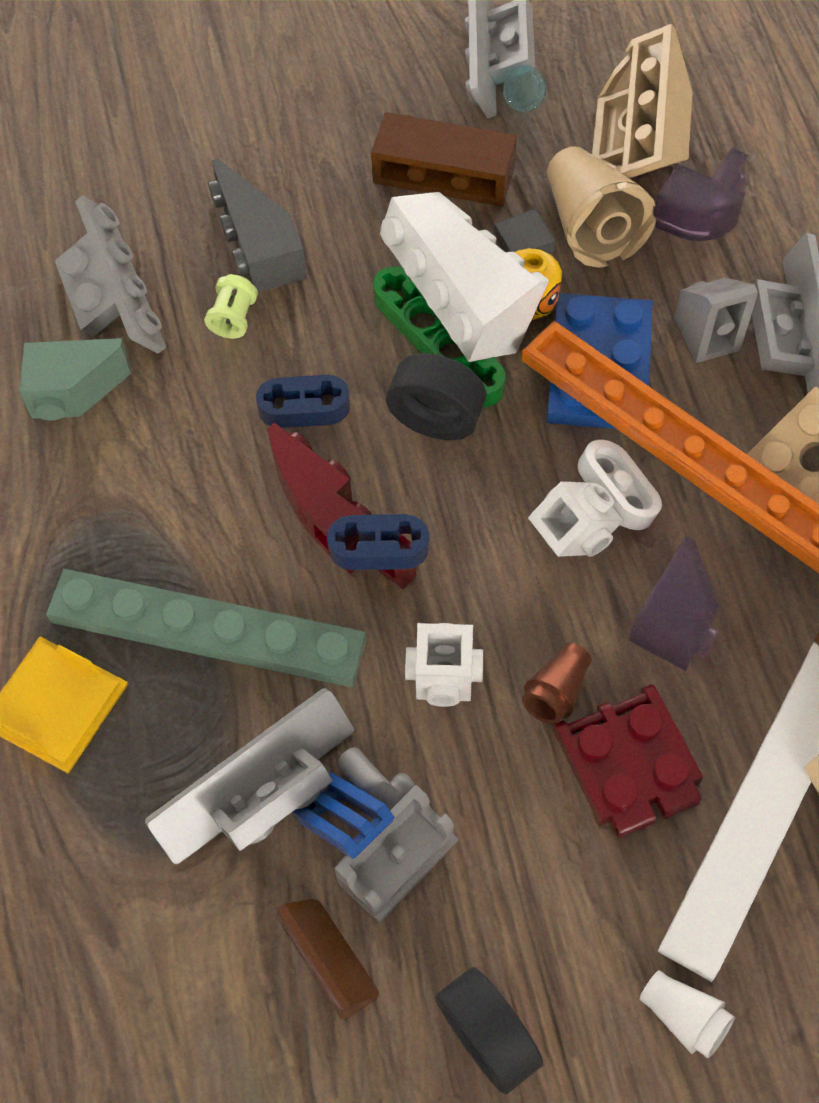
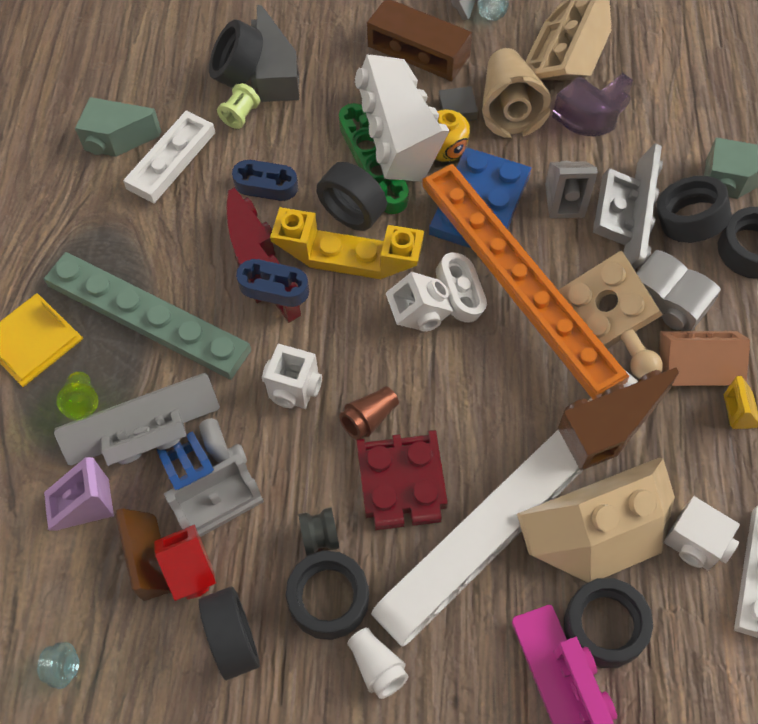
camera: 15 degrees right, 0 degrees up
(103, 279) = (162, 68): light grey bracket -> none
(160, 400) = (169, 156): none -> white plate
(161, 767) = (77, 397): none -> clear neon green cone
(207, 906) = (79, 497): none -> lavender slope
(225, 238) = (235, 53): none -> black tyre
(393, 953) = (185, 563): none -> red brick
(456, 475) = (371, 258): none -> yellow slope
(551, 860) = (318, 531): none -> pearl dark grey wheel
(630, 916) = (305, 570): none -> black tyre
(679, 611) = (470, 383): slope -> none

